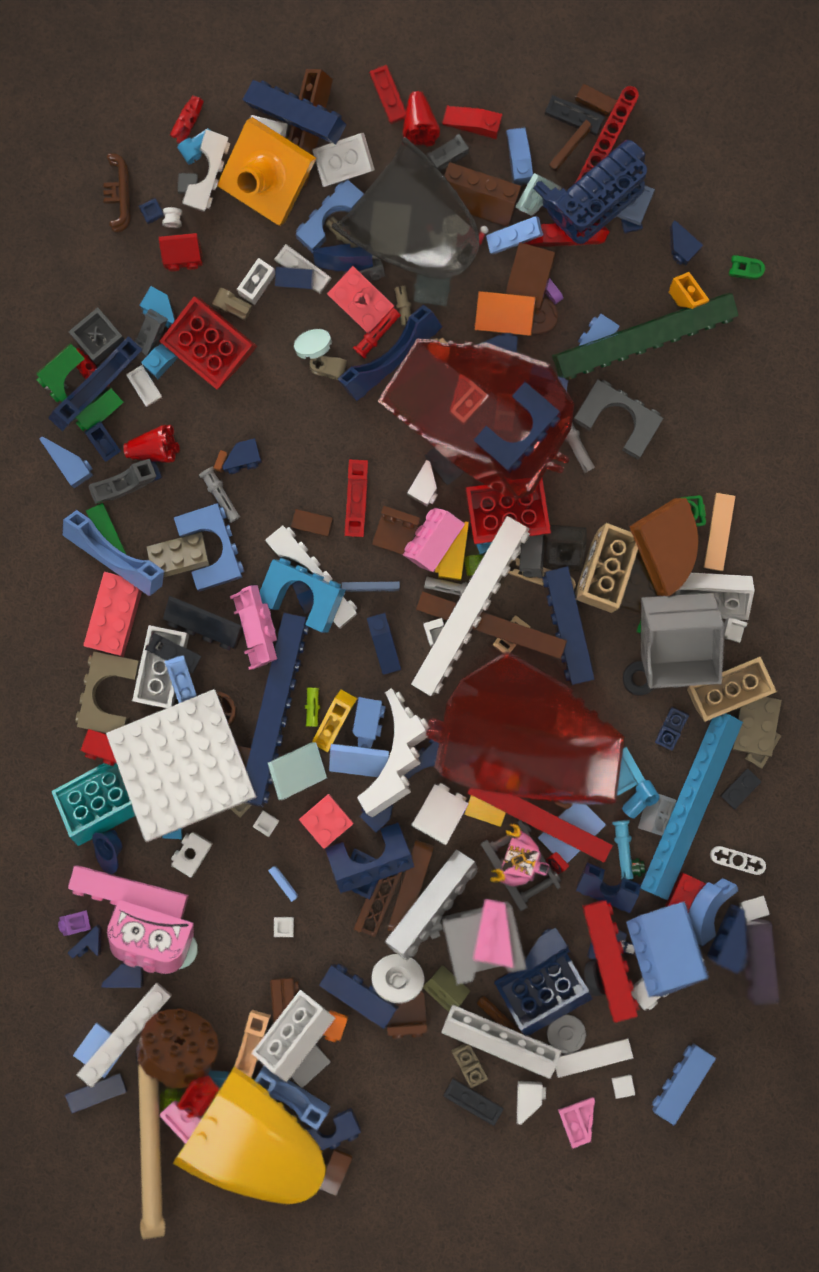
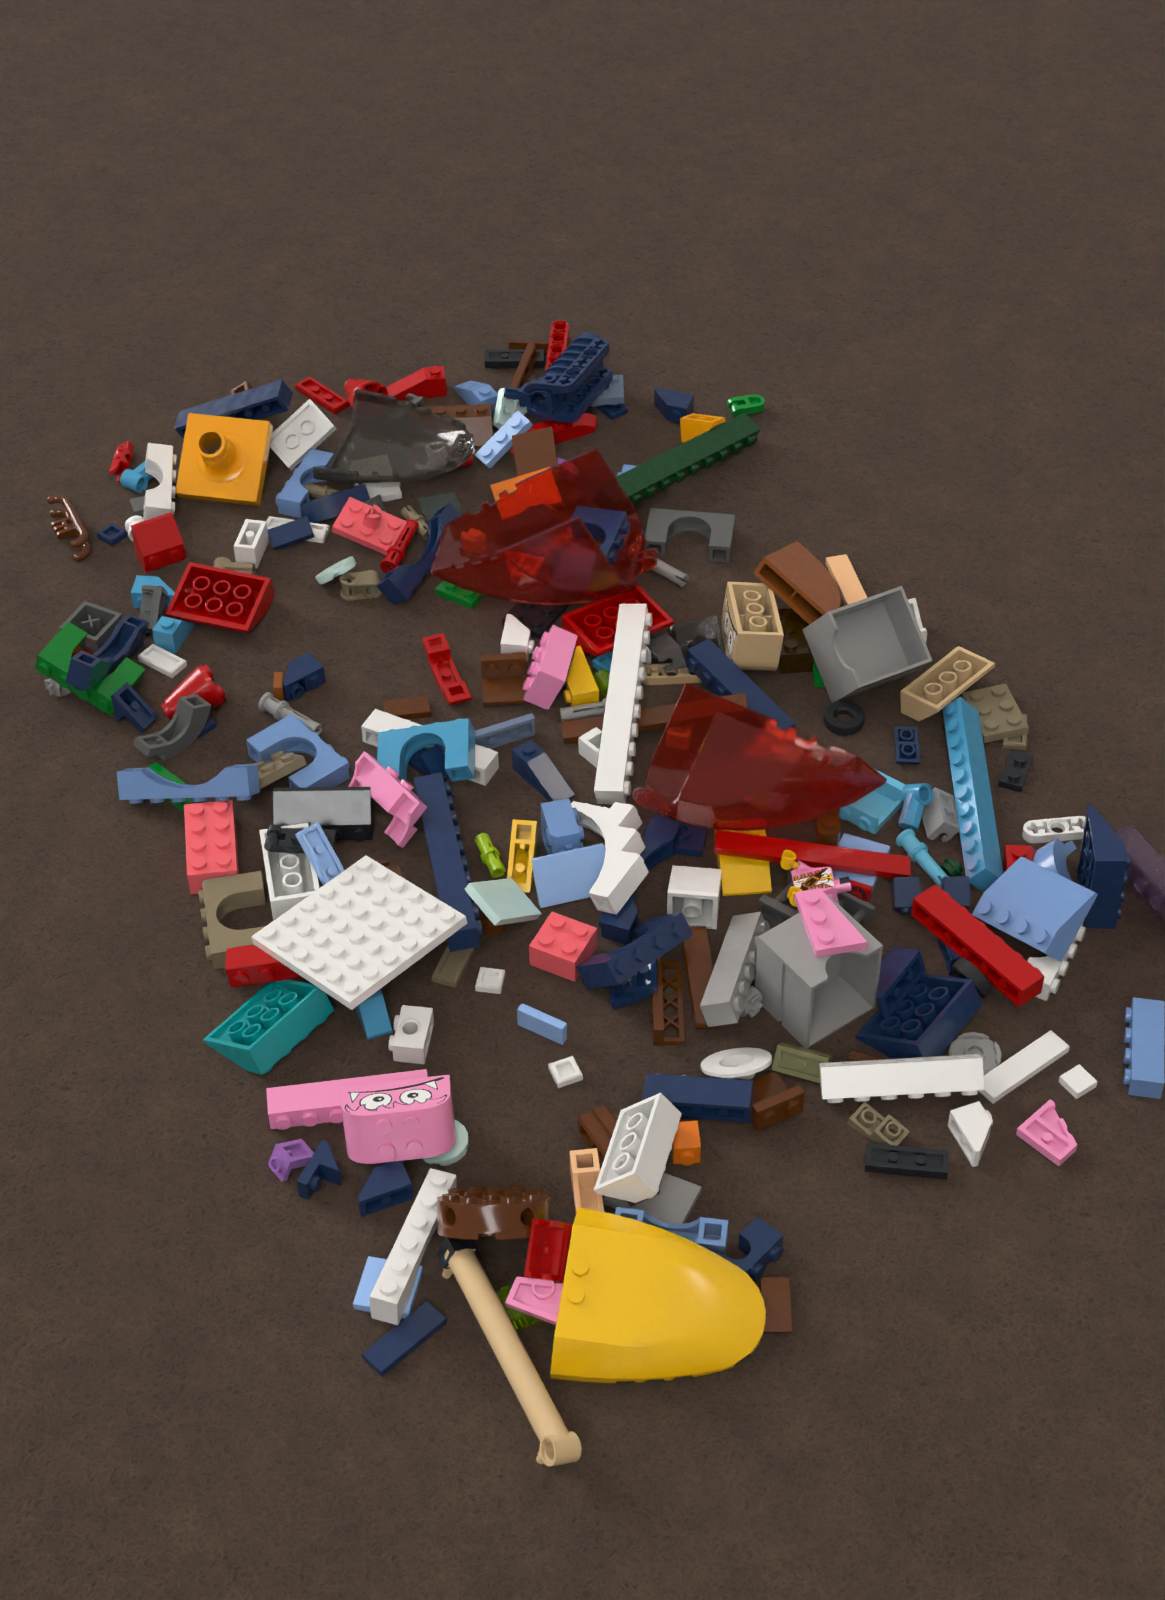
camera: 25 degrees left, 40 degrees down
(72, 466) = (98, 739): medium blue slope -> none
(107, 849) = (300, 1061): dark blue piece -> none

